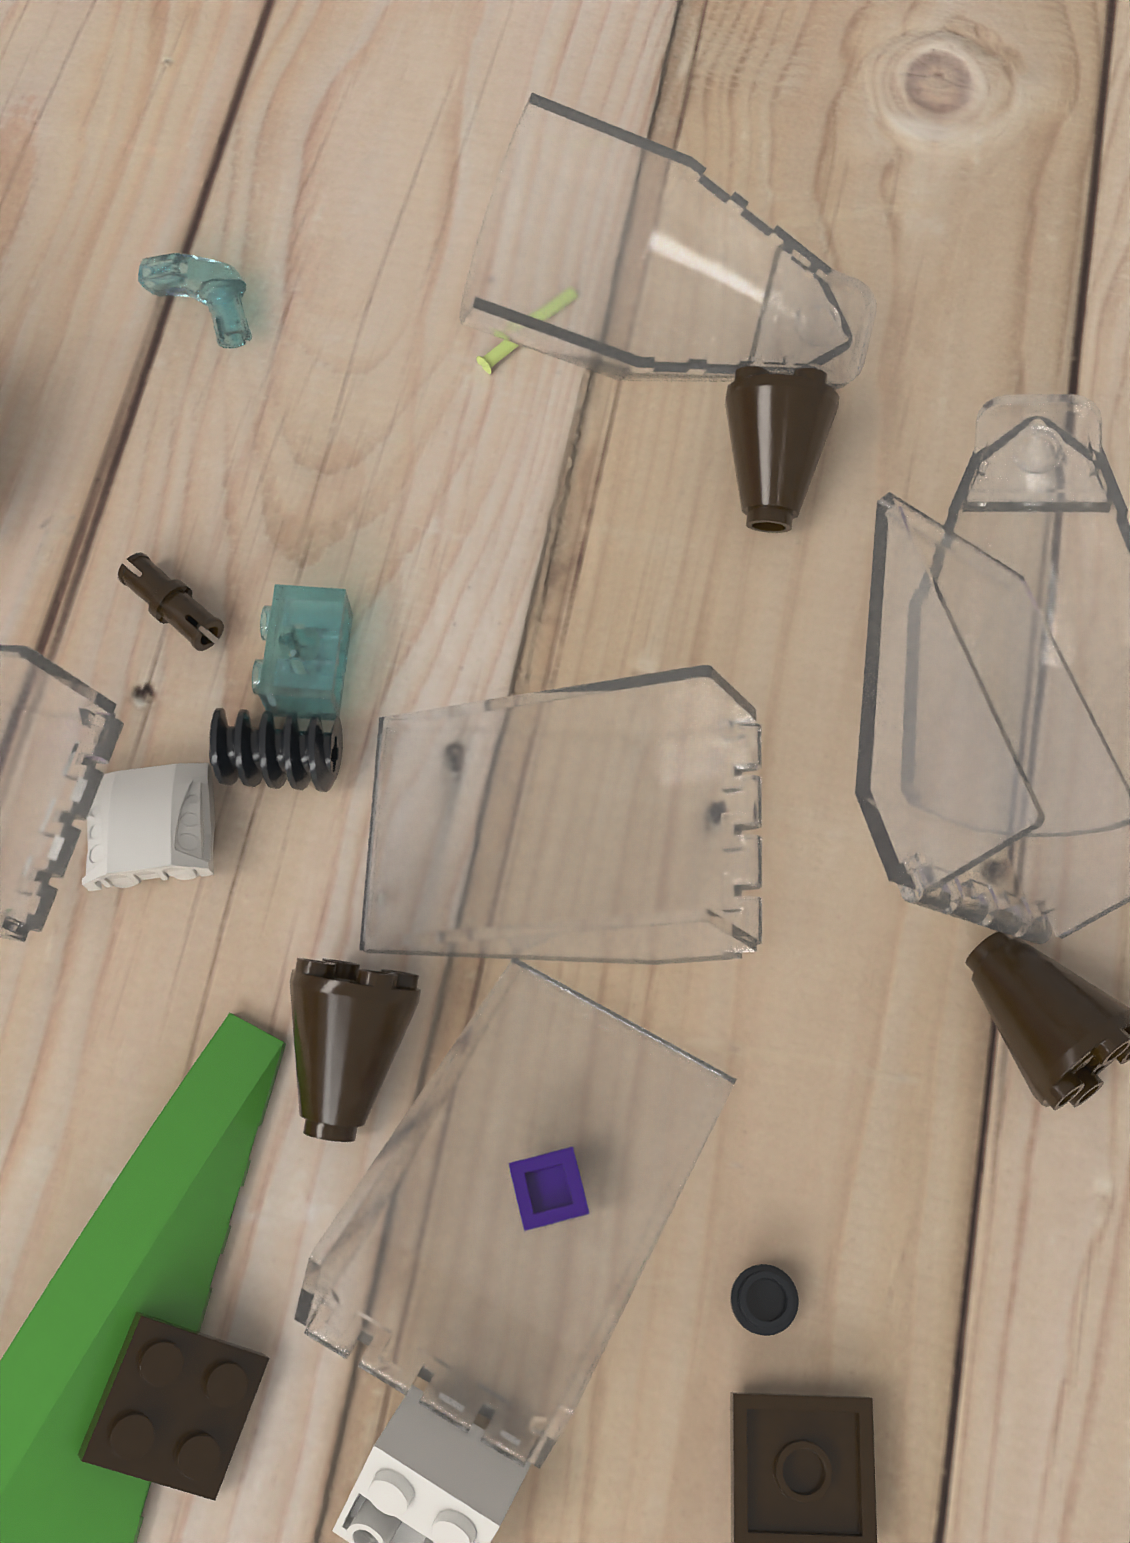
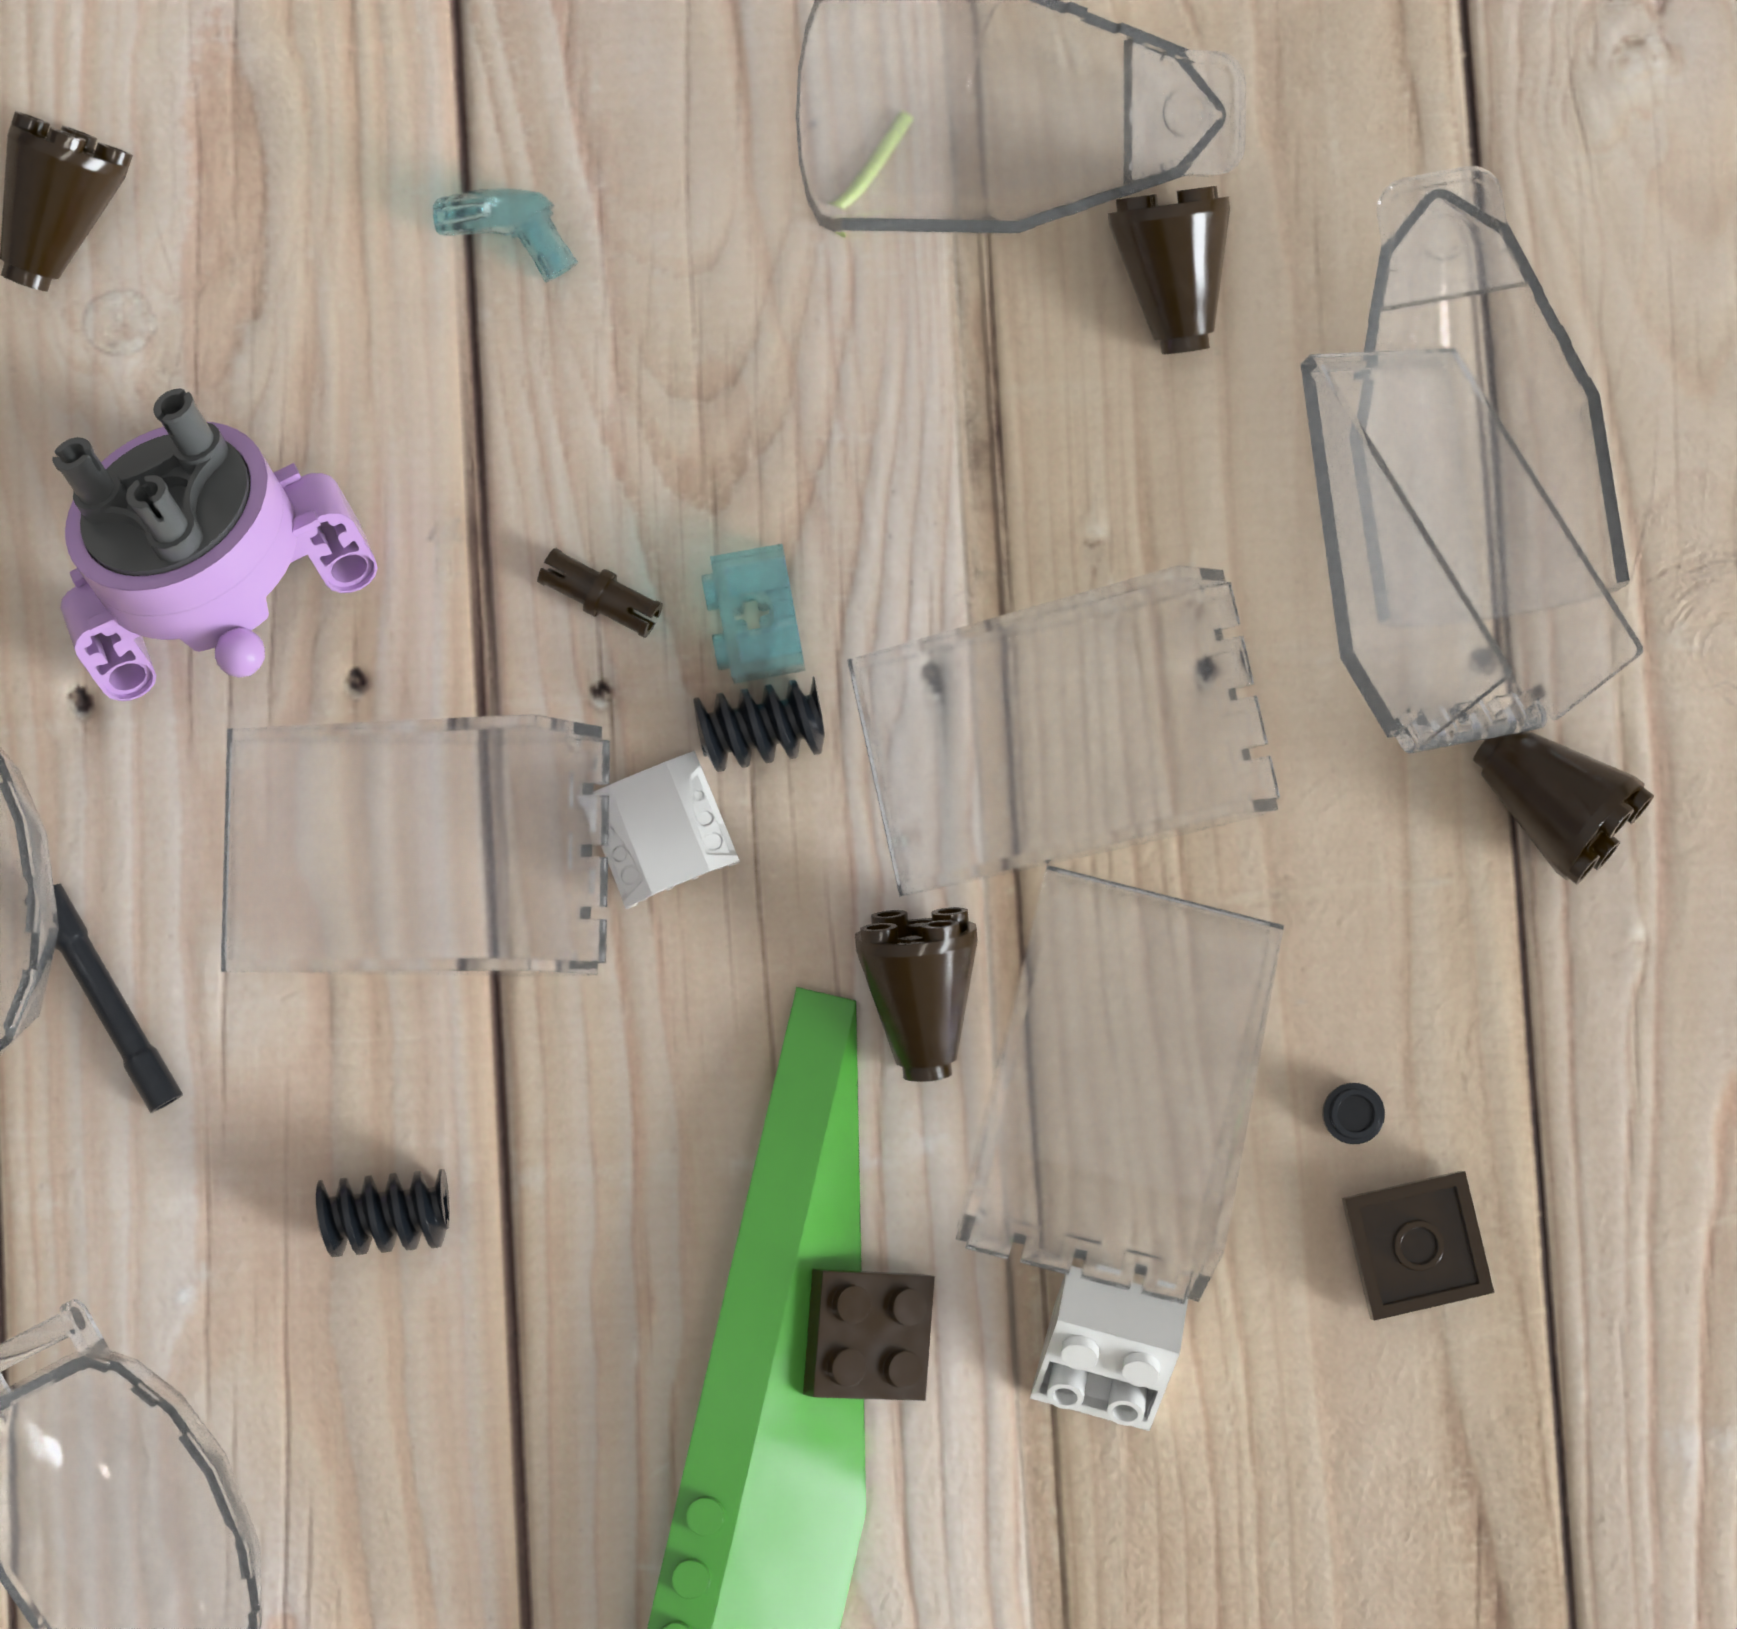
camera: 15 degrees left, 15 degrees up
(548, 1189) = (1140, 1070): dark purple plate -> none

